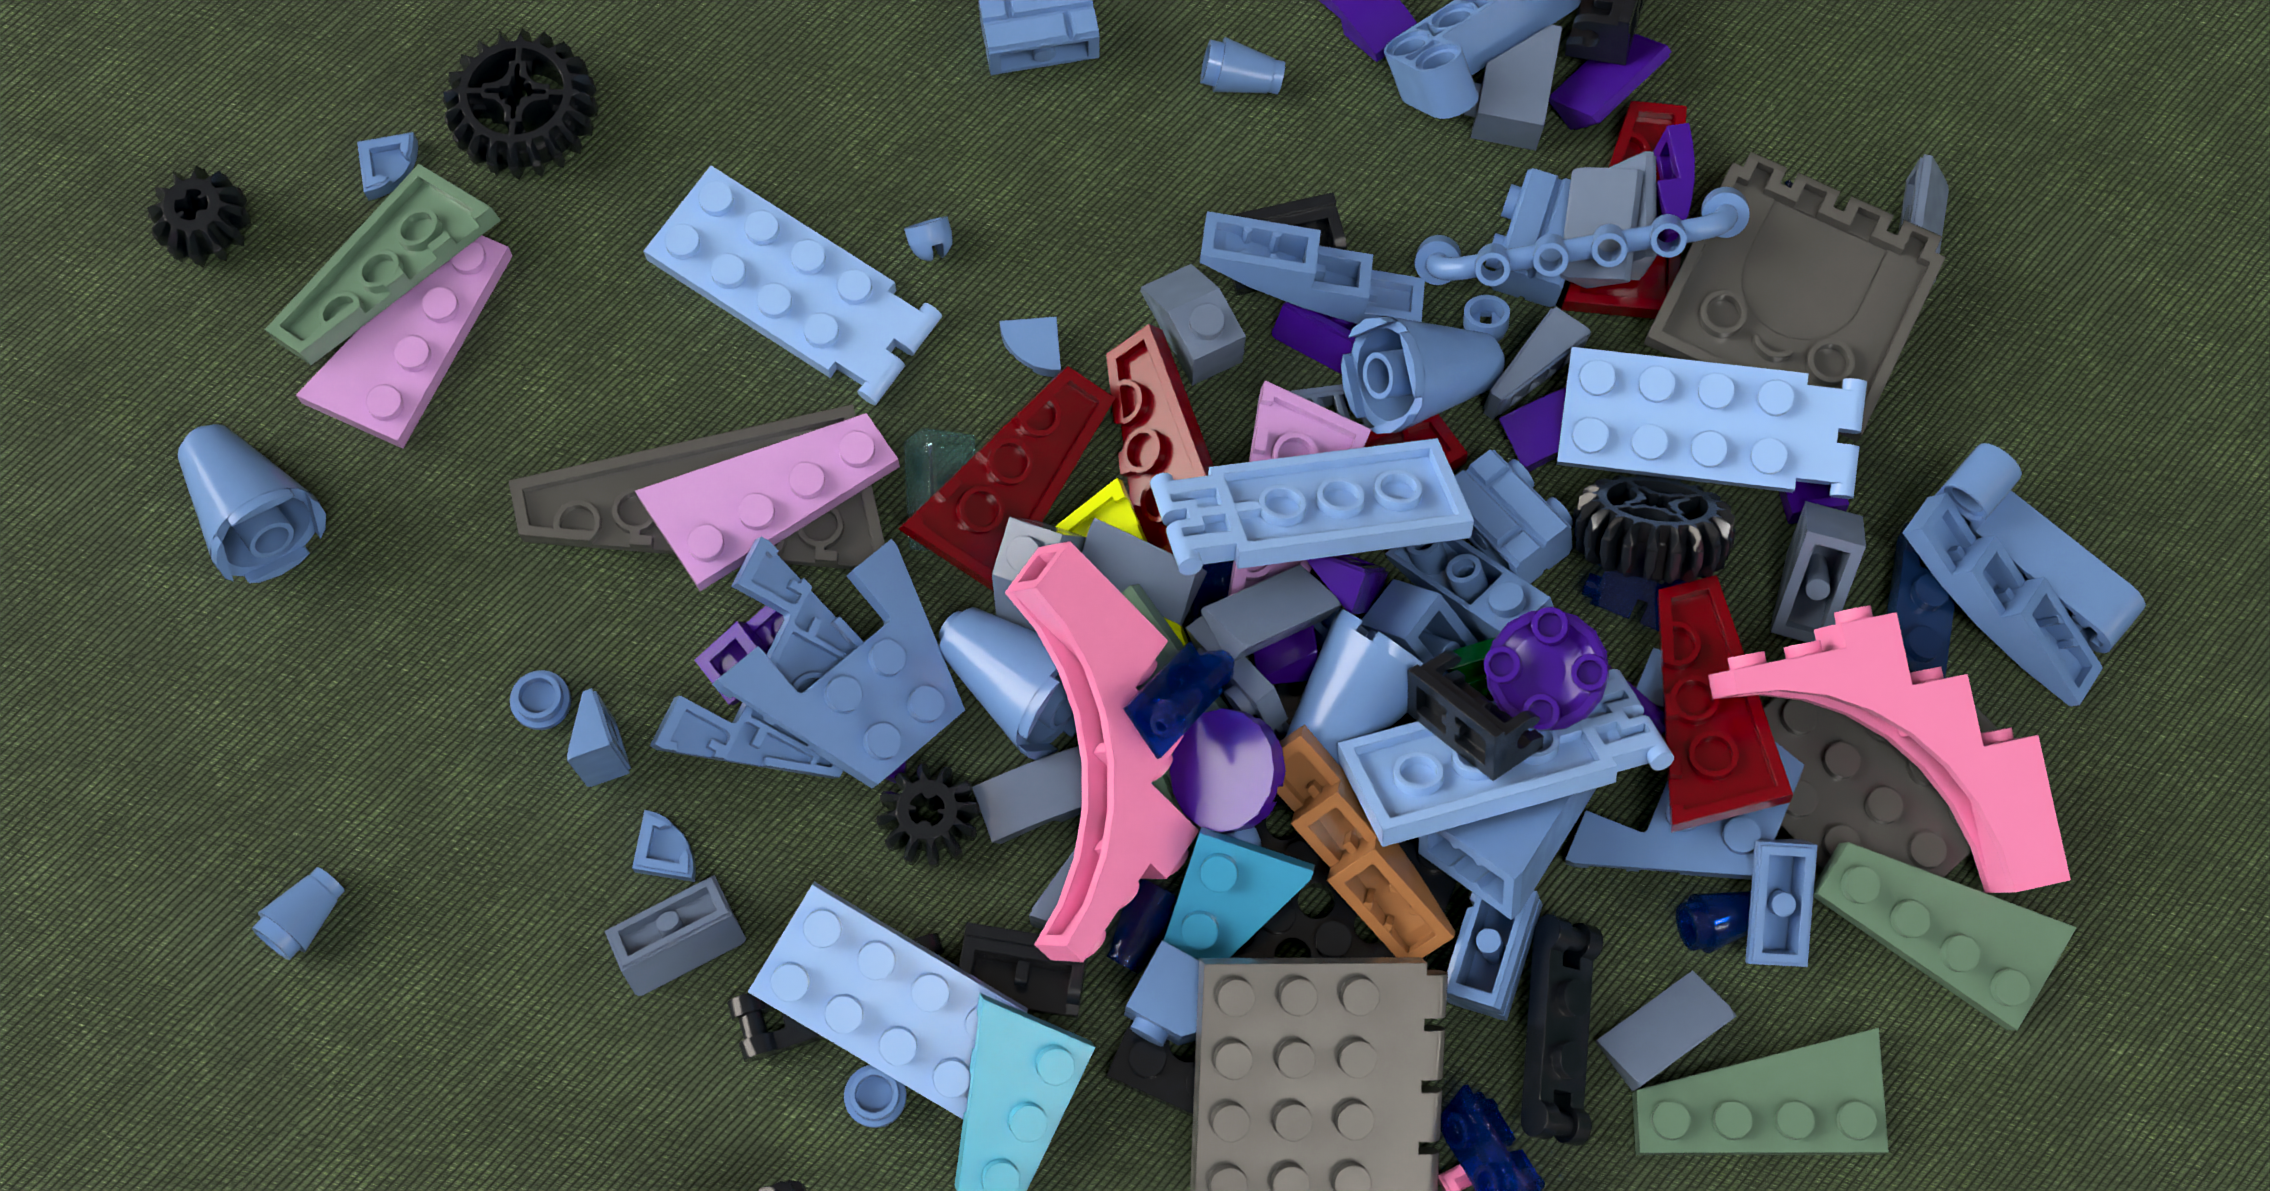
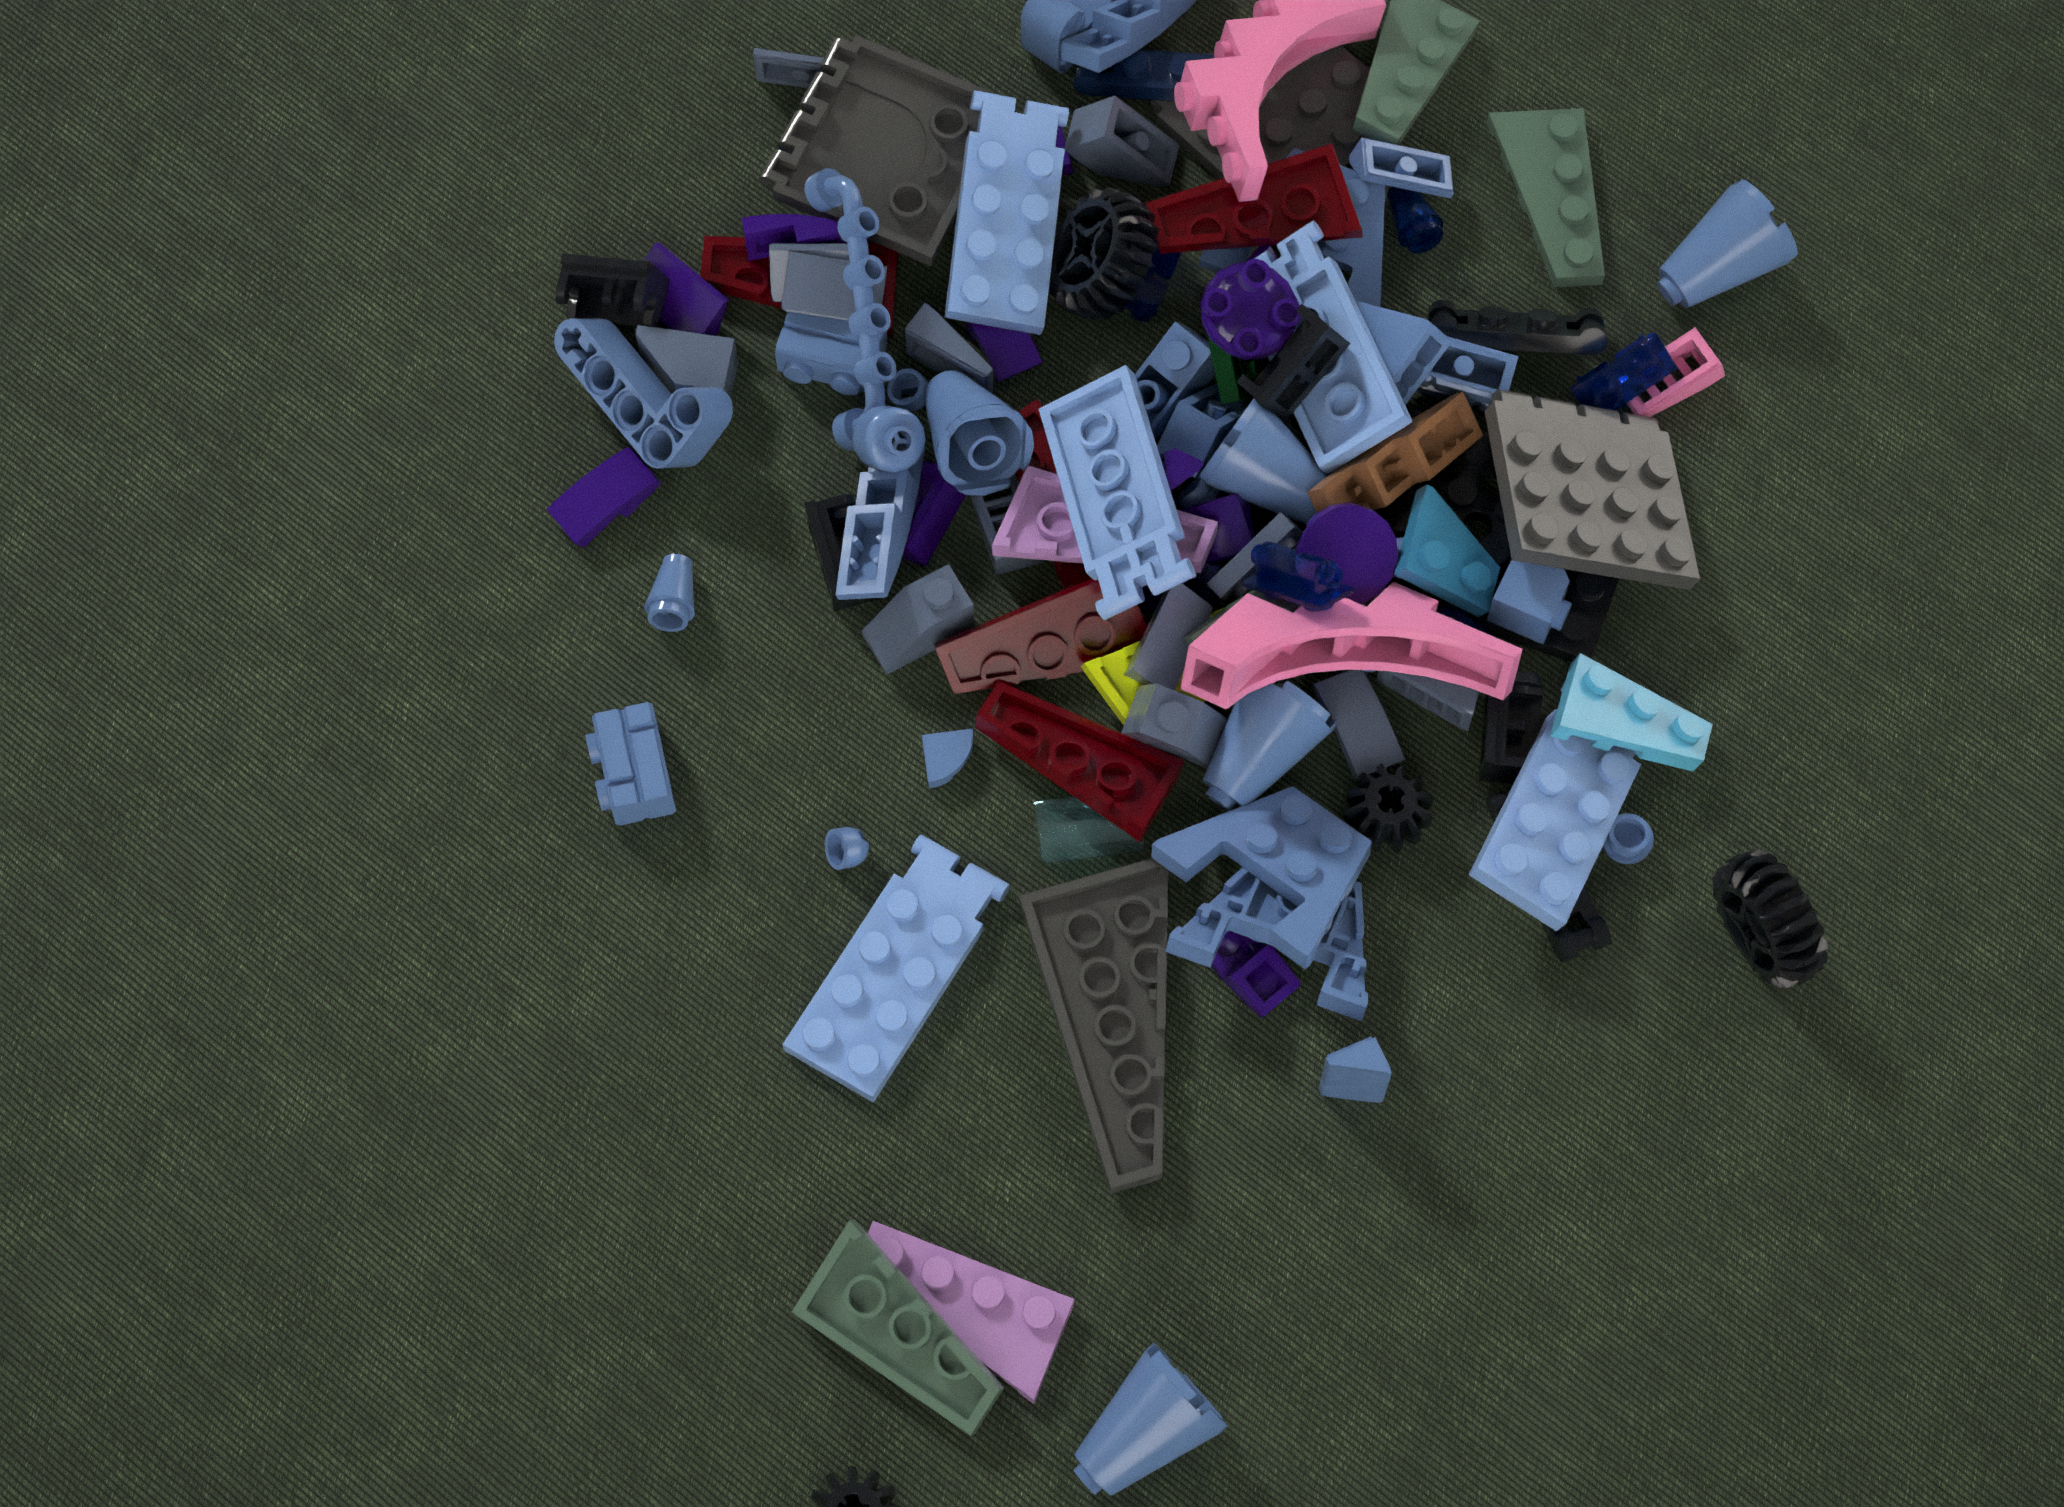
camera: 90 degrees left, 5 degrees down
(298, 914) = (1527, 1328): medium blue cone -> none
(386, 162) = (784, 1352): medium blue tile -> none
(540, 700) = (1310, 1145): medium blue plate -> none
(544, 120) = (747, 1220): black gear -> none
(663, 850) = (1434, 1029): medium blue tile -> none
(675, 936) = (1506, 1013): sand blue slope -> none
(769, 493) = (1124, 971): lavender wing -> none
(1269, 611) = (1214, 522): sand blue slope -> none
(1404, 276) = (888, 438): none -> medium blue head
(1512, 518) = (1101, 348): medium blue brick -> none
(1664, 1030) = (1507, 258): sand blue slope -> none

